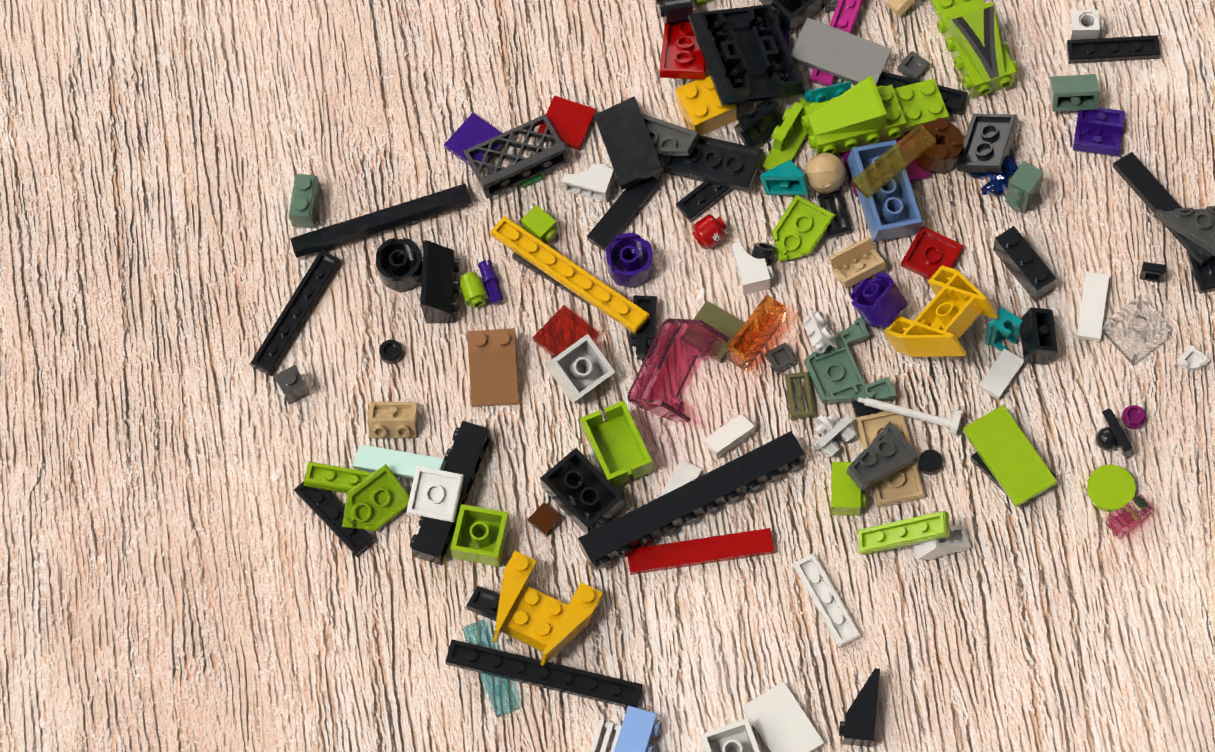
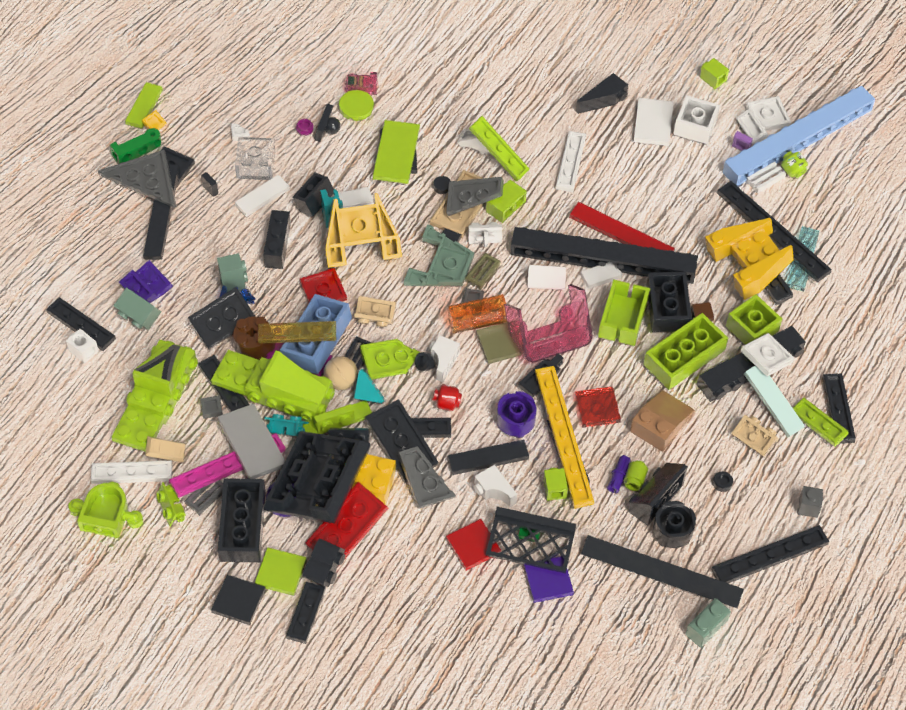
camera: 150 degrees left, 10 degrees down
(375, 501) = (806, 388): lime tile -> none
(523, 449) = (685, 351): none -> lime brick
(580, 368) = (609, 369): white brick -> none
(628, 143) = (447, 490): black tile -> none
(818, 330) = (440, 281): white hinge -> none
(878, 300) = (395, 281): dark purple brick -> none
(951, 424) = (409, 191): white piece -> none

